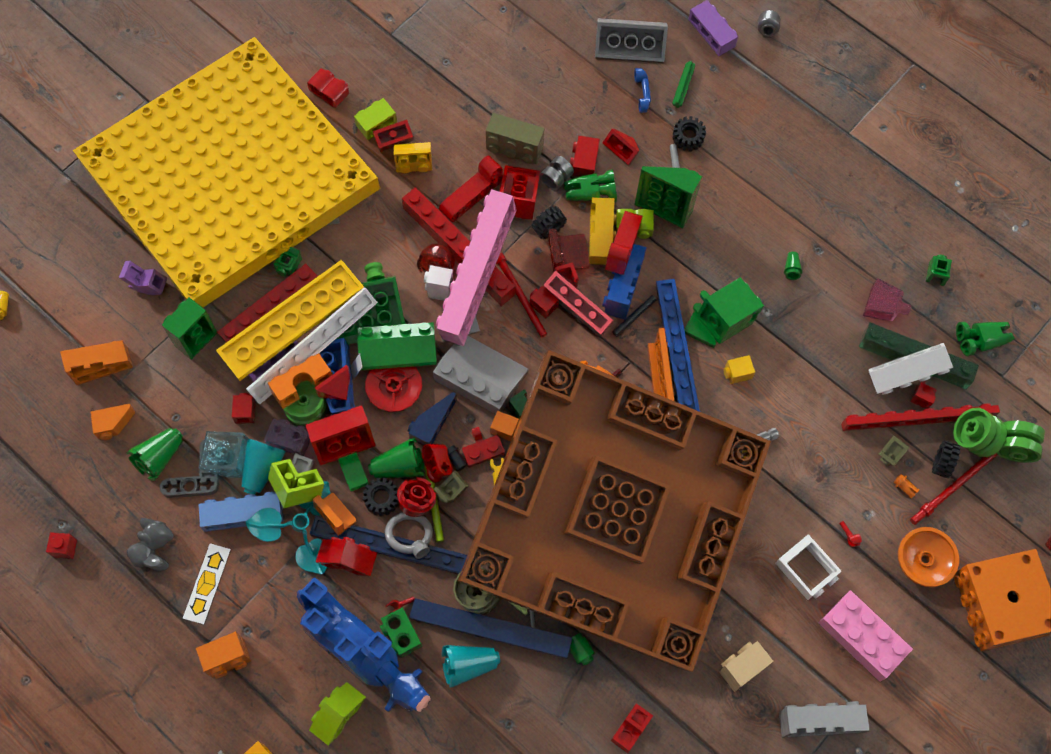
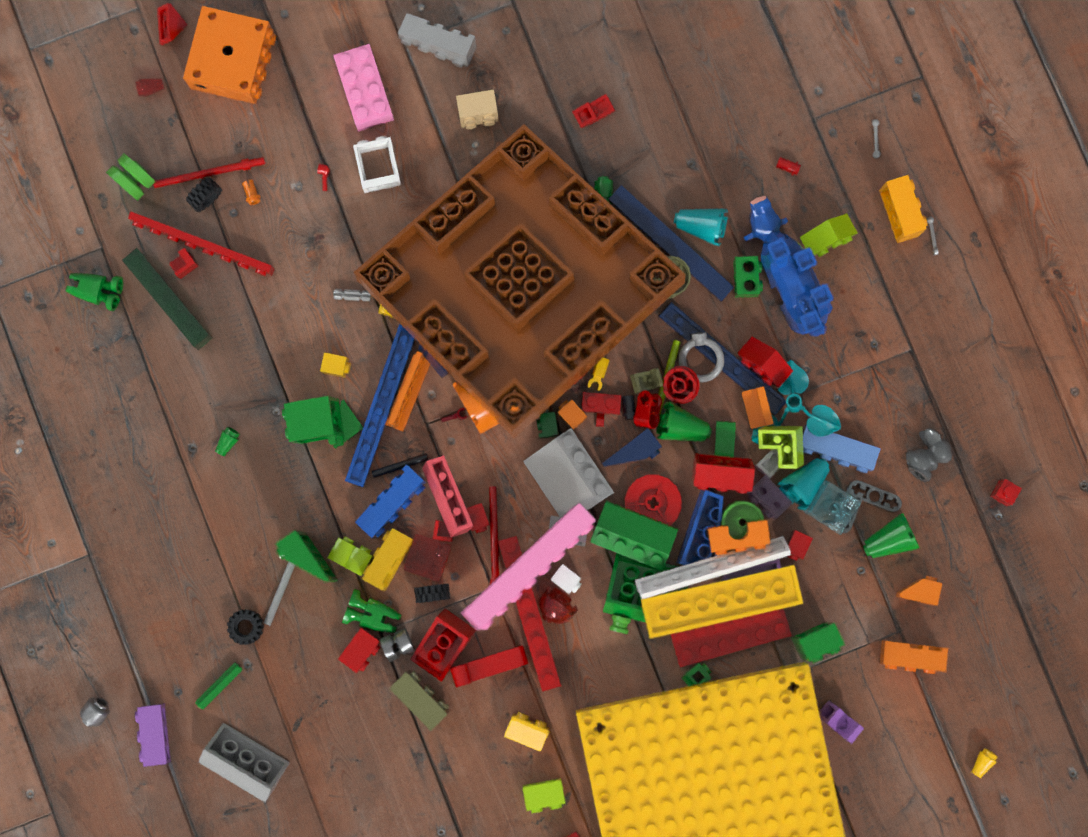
camera: 150 degrees left, 15 degrees up
(206, 583) = (892, 402): sticker -> none
(223, 655) = (903, 325): orange brick -> none
(335, 386) = (708, 514): red slope -> none
(356, 366) = (679, 534): white sticker -> none
(376, 486) = (720, 397): black tyre -> none
(393, 134) = (536, 763): red brick -> none
(398, 604) = (739, 302): red hand -> none
(621, 145) = (316, 647): red slope -> none
(623, 244) = (376, 531): red beam -> none
(641, 76) = (256, 714): blue bar -> none
(885, 302) = (164, 364): clear pink torso -> none
(893, 451) = (244, 226): olive bracket -> none
(911, 368) = (185, 285): white brick -> none
(936, 548) = (270, 110): orange dish -> none
(942, 262) = (103, 371): green window -> none
(980, 432) = (161, 200): bright green wheel -> none

